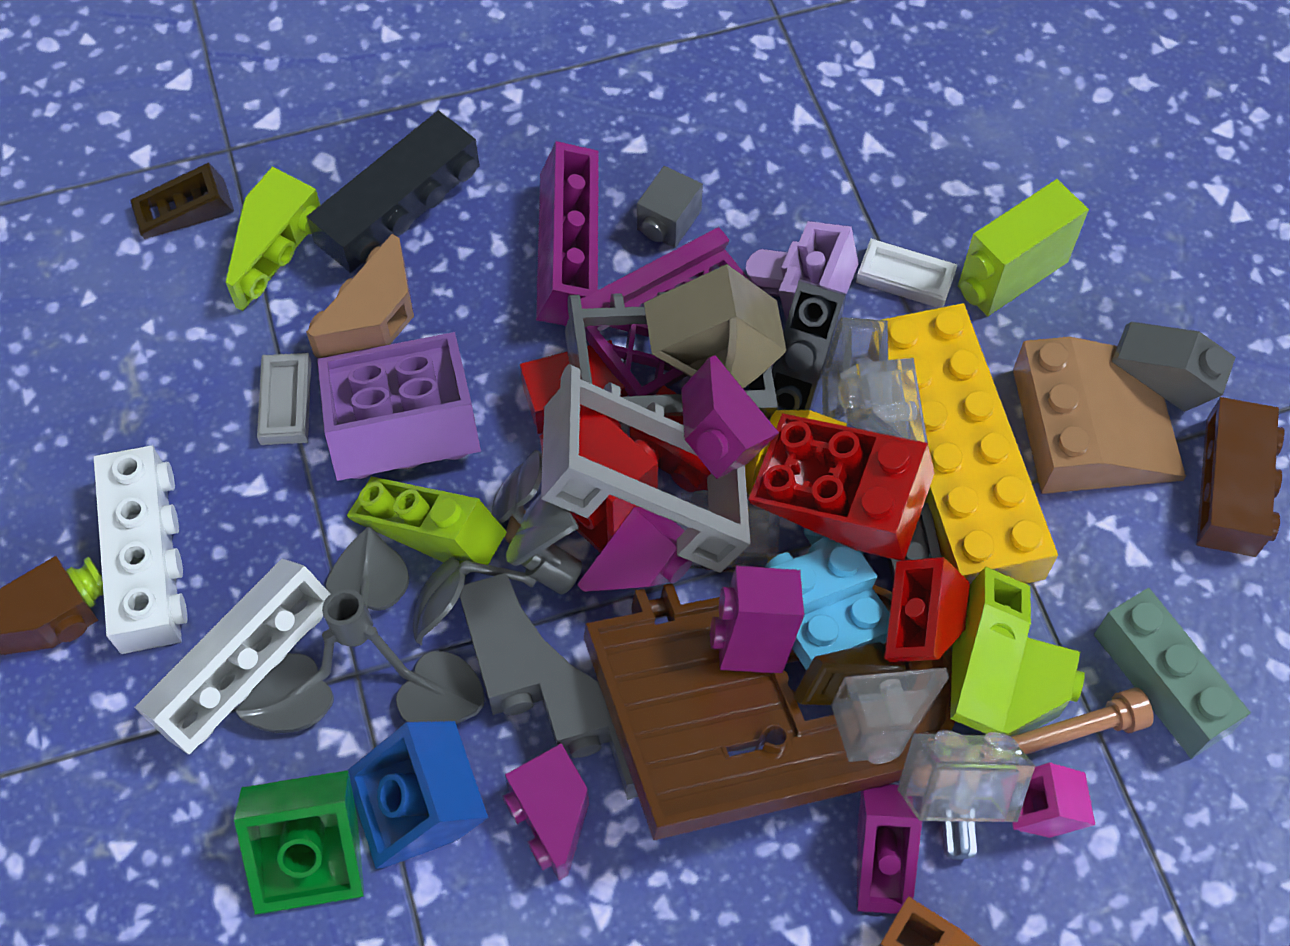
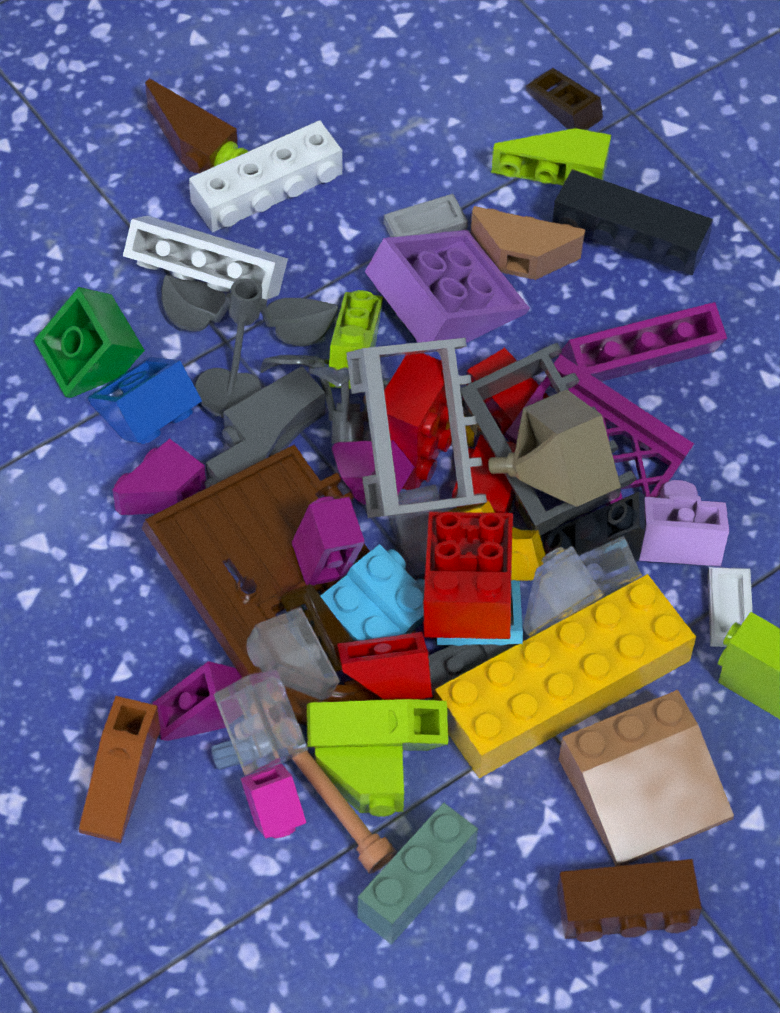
camera: 70 degrees right, 5 degrees down
(669, 207) = (707, 412): dark grey brick -> none
(722, 420) = (477, 470): magenta slope -> none
(1174, 363) = (715, 816): dark grey slope -> none

